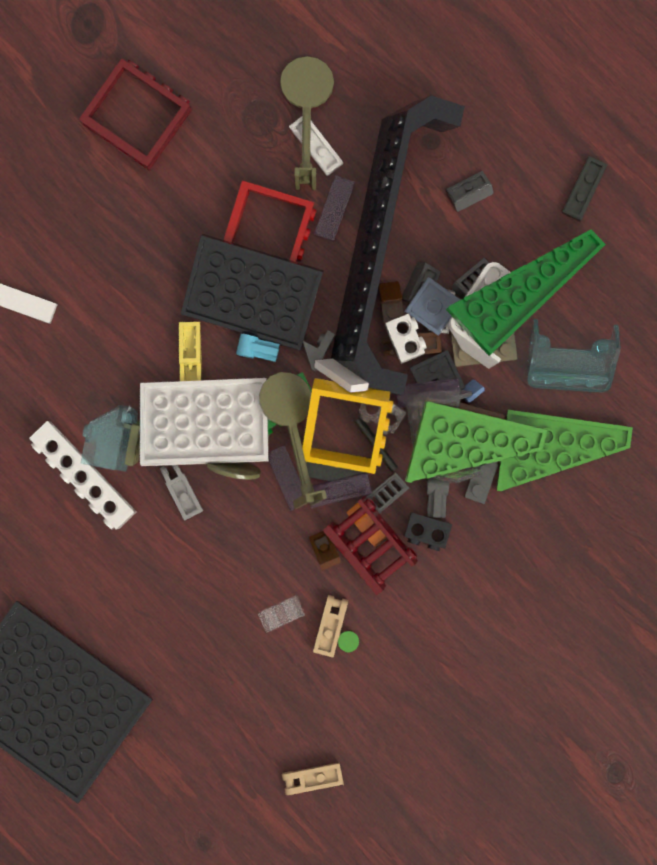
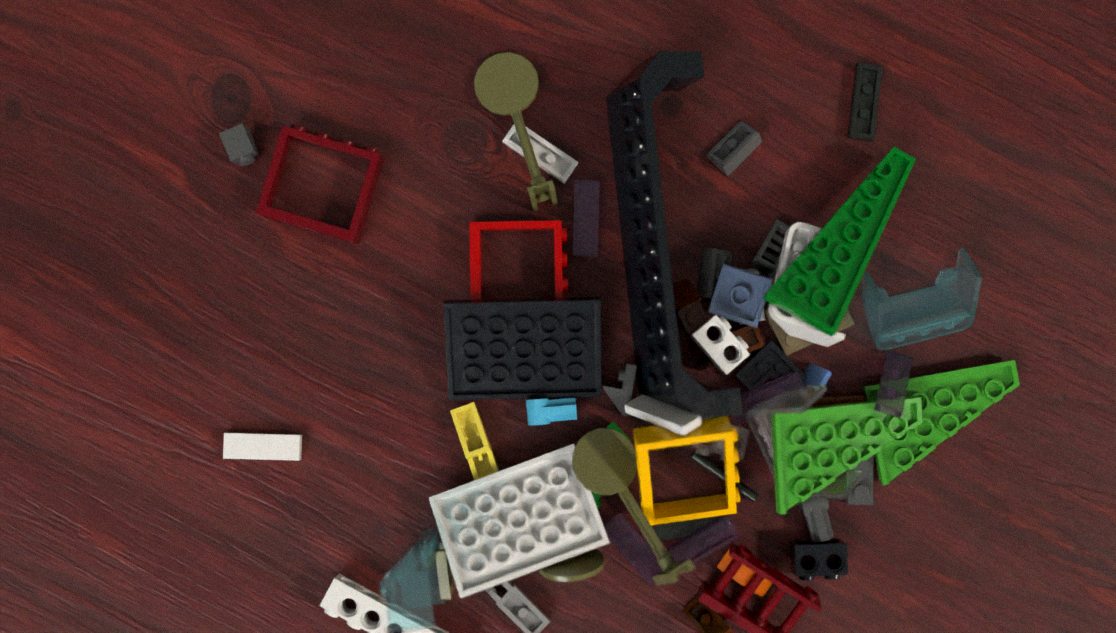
camera: 20 degrees left, 0 degrees up
(83, 62) = (240, 145): none -> dark grey brick
(401, 484) = (763, 535): dark grey slope -> none
(529, 412) = (893, 384): none -> tile

